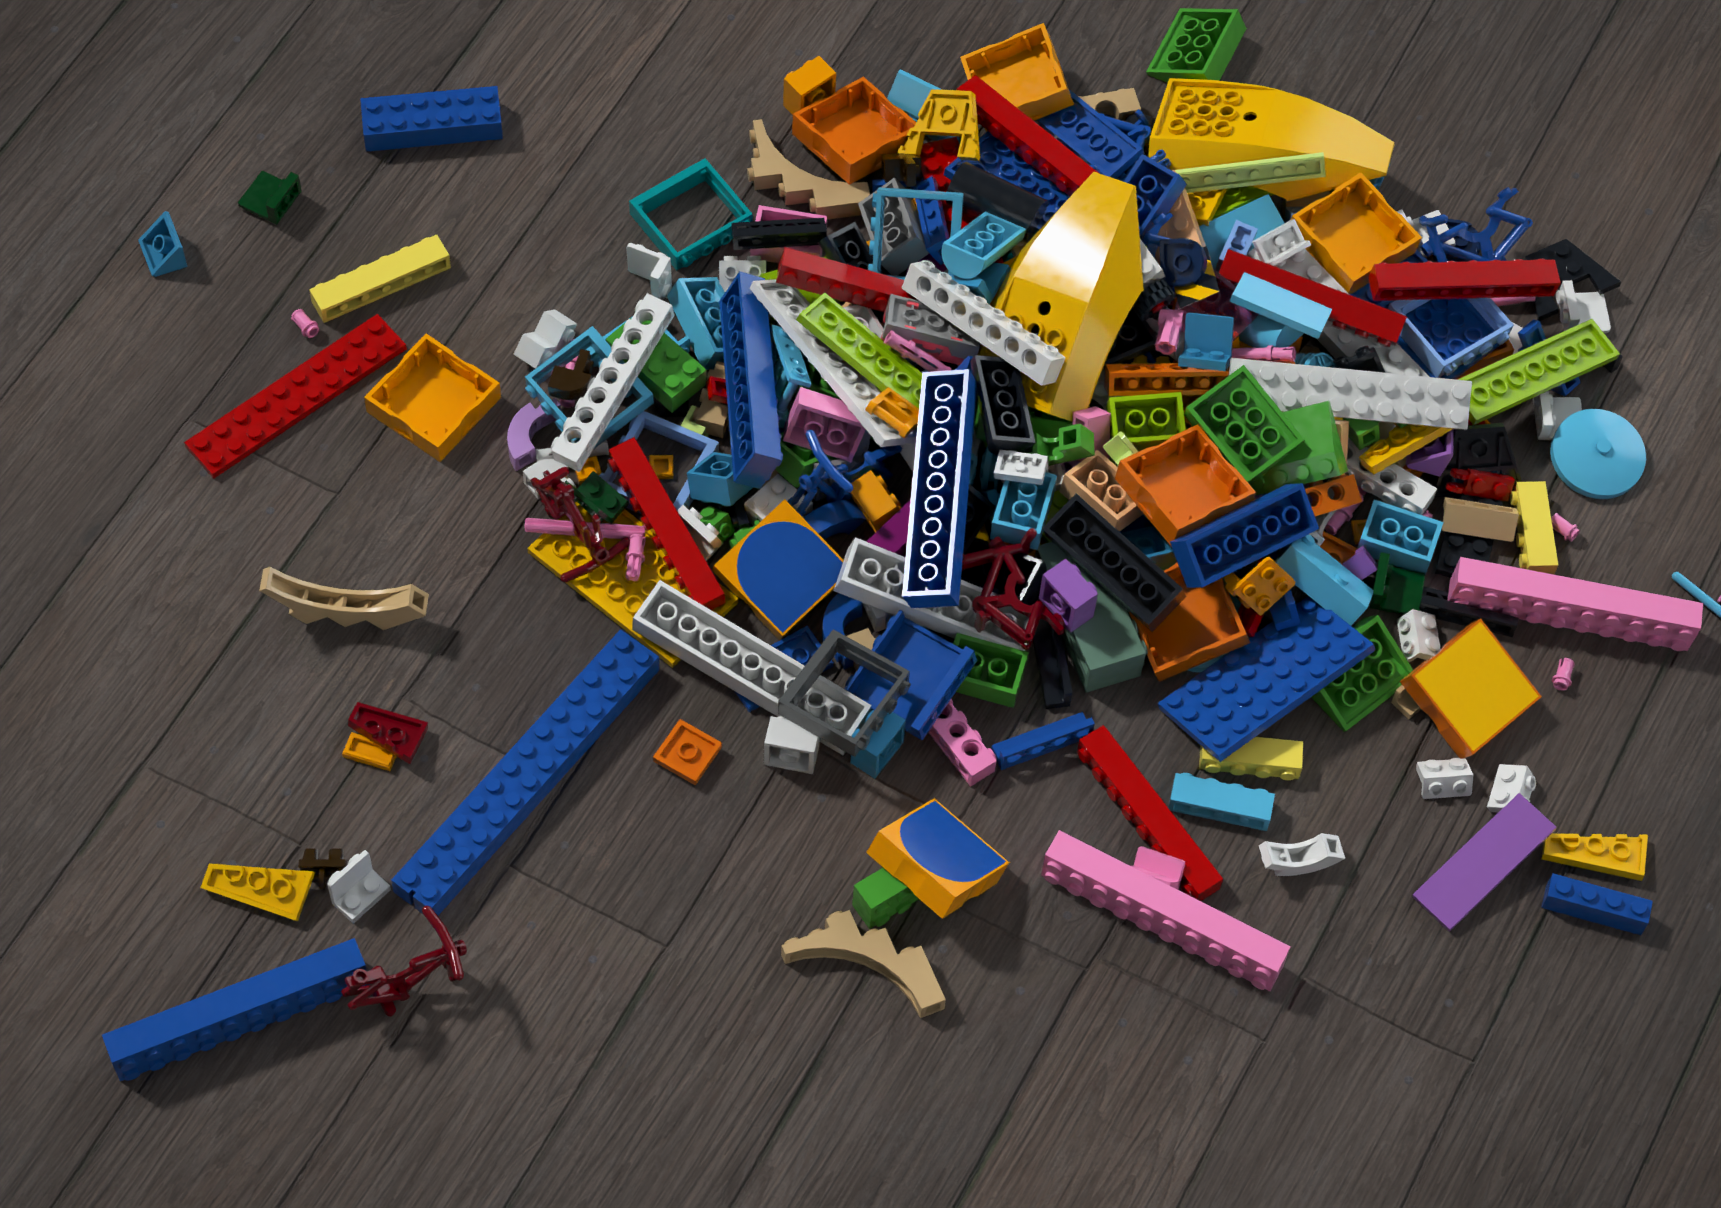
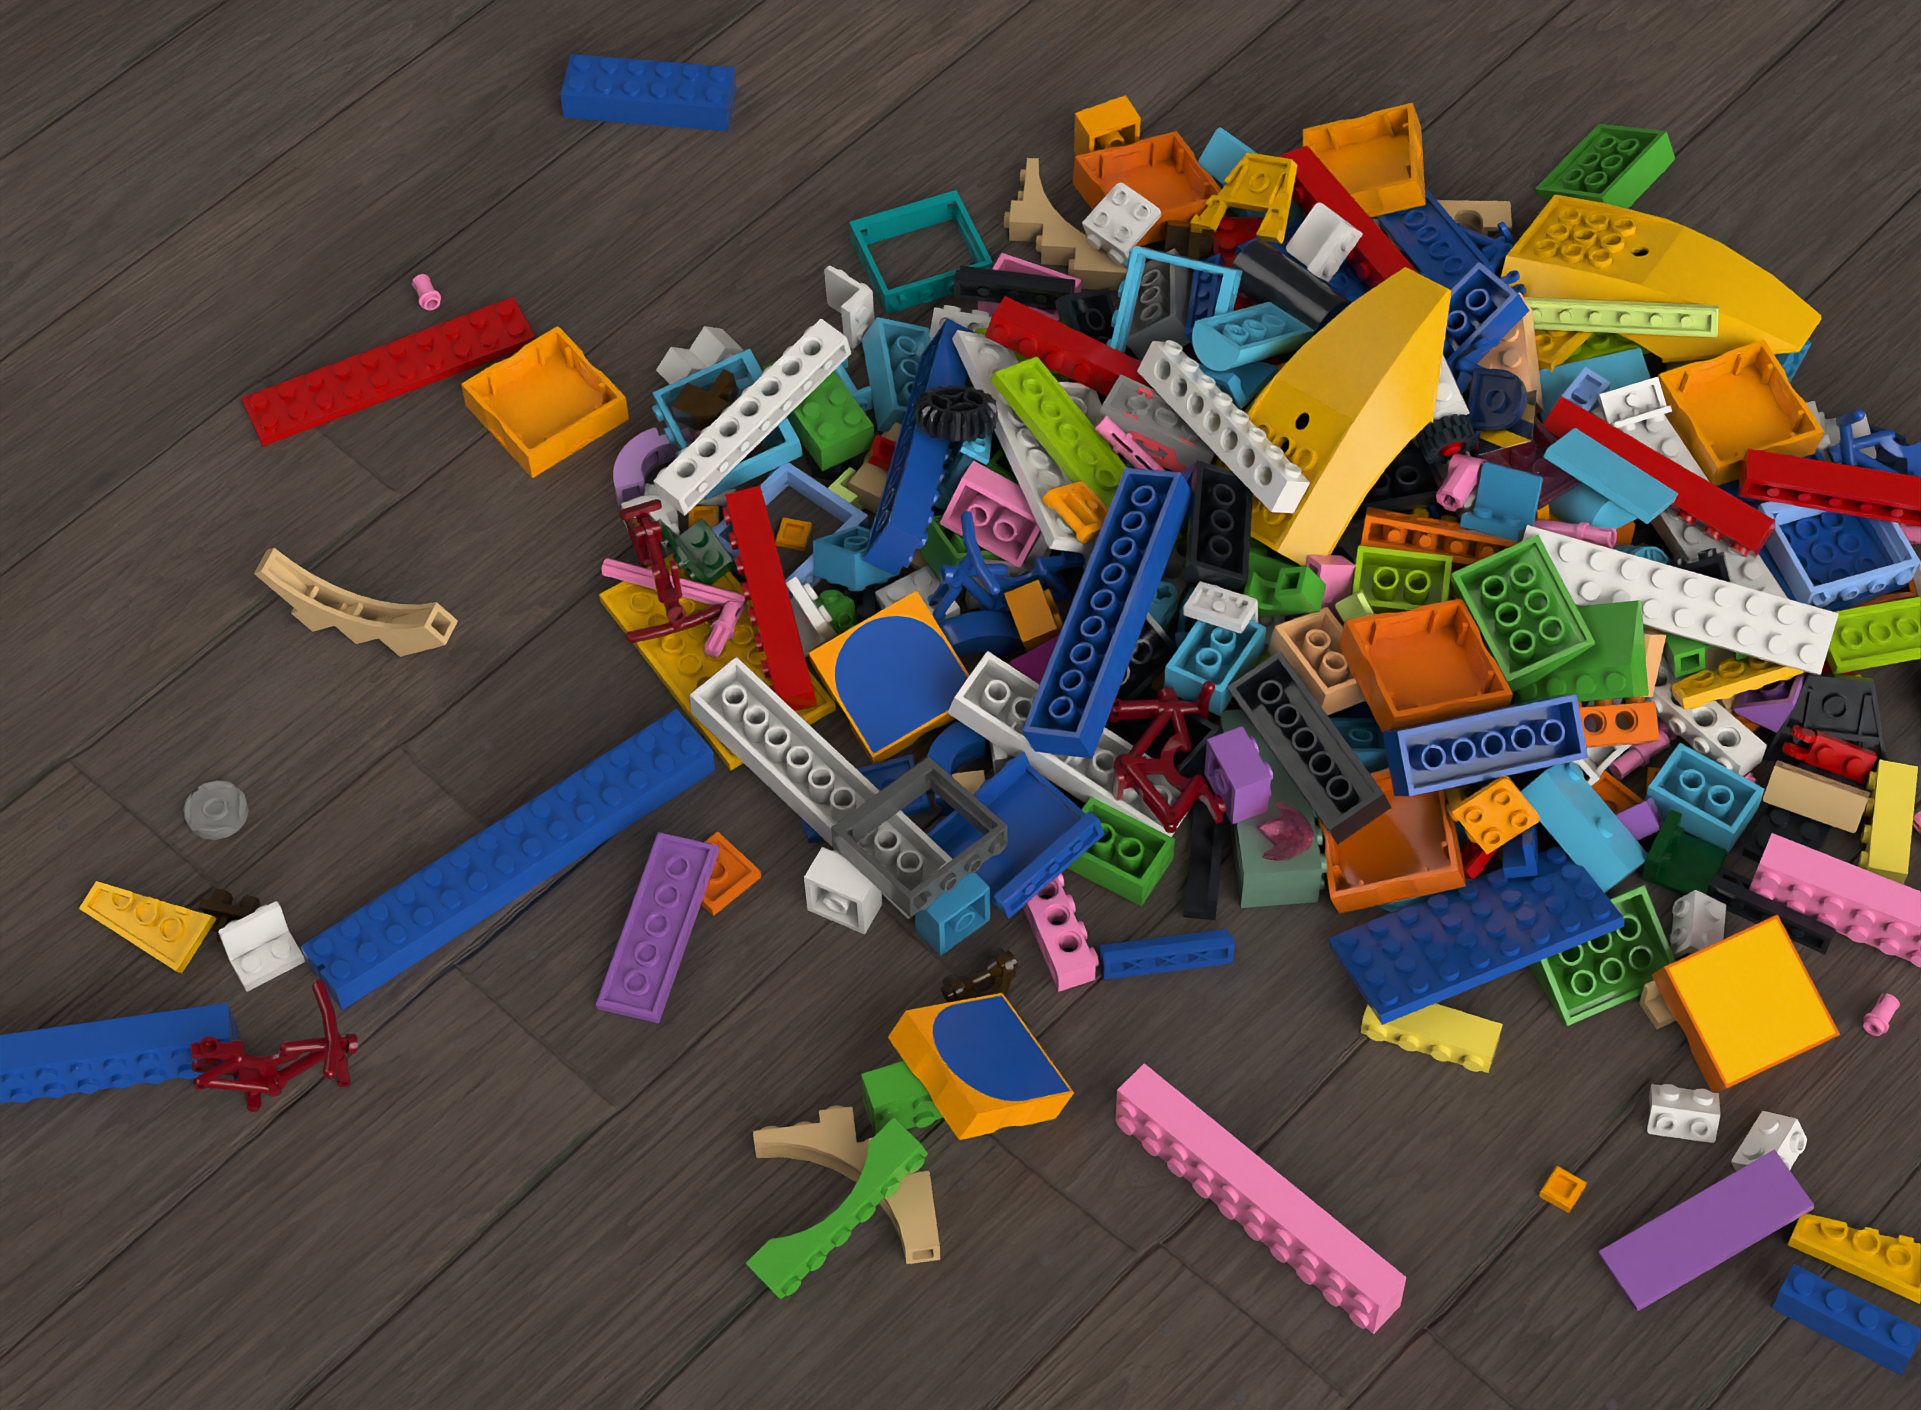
camera: 20 degrees right, 5 degrees down
(162, 247) = (293, 179): dark azure slope -> none
(271, 196) = (436, 145): dark green bracket -> none
(280, 785) = (216, 810): none -> light grey tile
(367, 752) = (335, 793): light orange tile -> none
(380, 278) = (529, 258): light yellow brick -> none
(389, 730) = (364, 772): dark red wing -> none
(658, 803) = (657, 927): none -> medium lavender tile
(777, 352) = (956, 413): none -> black gear
(836, 1035) = (788, 1259): none -> bright green arch
(847, 165) = (1120, 222): none -> white bracket
(900, 801) = (999, 967): none -> dark brown piece
(1011, 153) = (1323, 241): none -> white bracket
(1116, 632) = (1289, 834): none -> clear pink piece
(1147, 811) = (1276, 1075): red brick -> none
(1160, 866) = (1268, 1141): bright pink panel -> none
(1221, 801) = (1375, 1077): medium azure brick -> none
(1303, 856) = (1461, 1172): white arch -> none
(1374, 854) = (1562, 1189): none -> light orange tile

